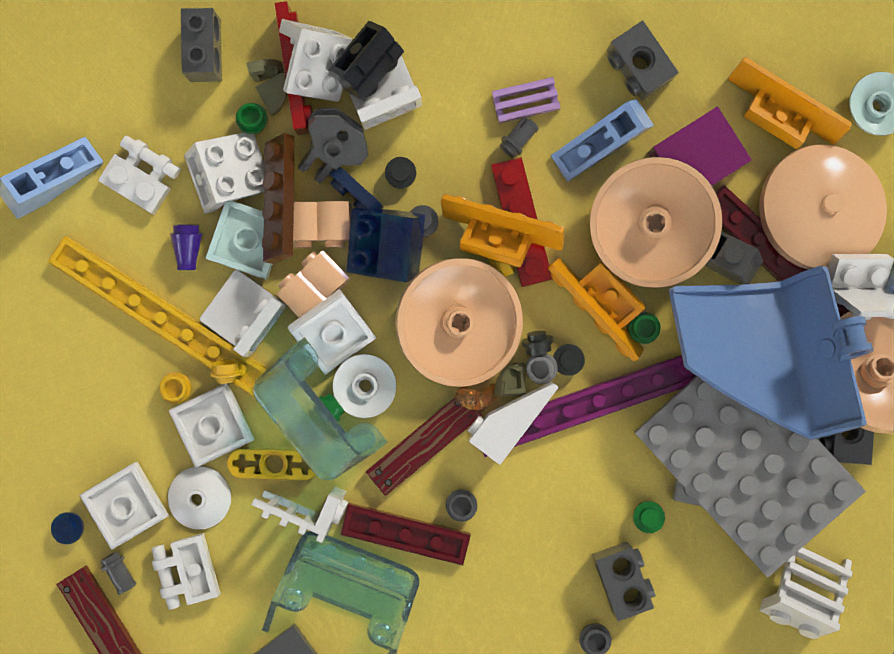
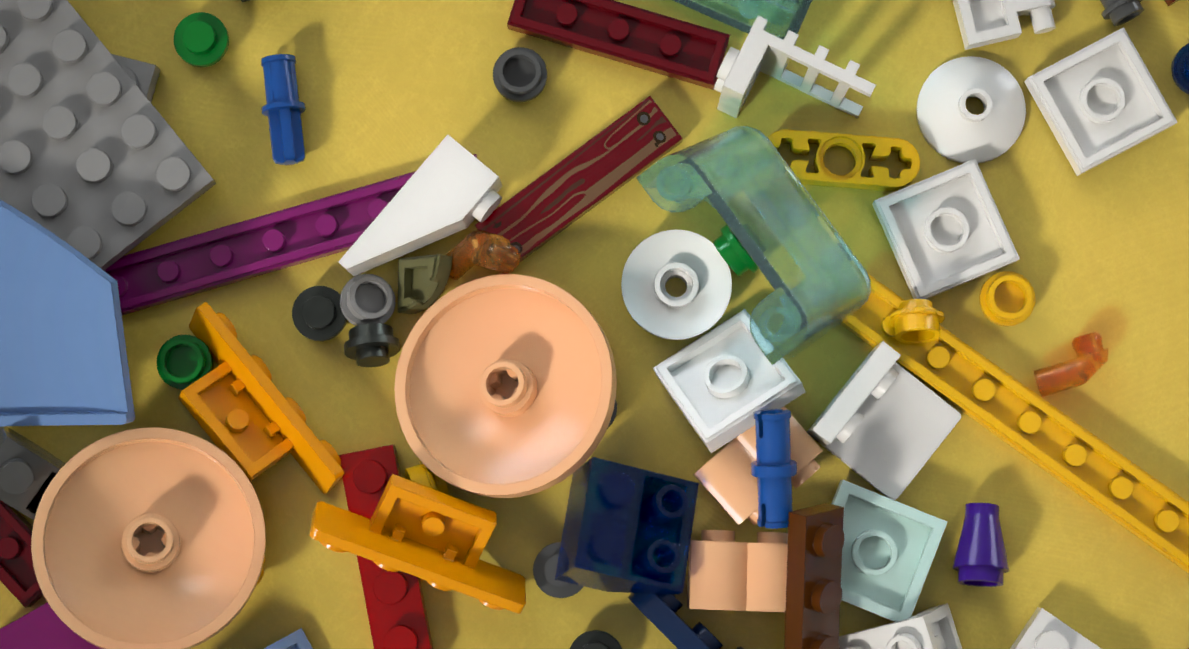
camera: 170 degrees left, 5 degrees down
(133, 348) = (1076, 371): none -> clear orange arm
(303, 281) = (773, 467): none -> blue pin
(597, 477) = (283, 109): none -> blue axle

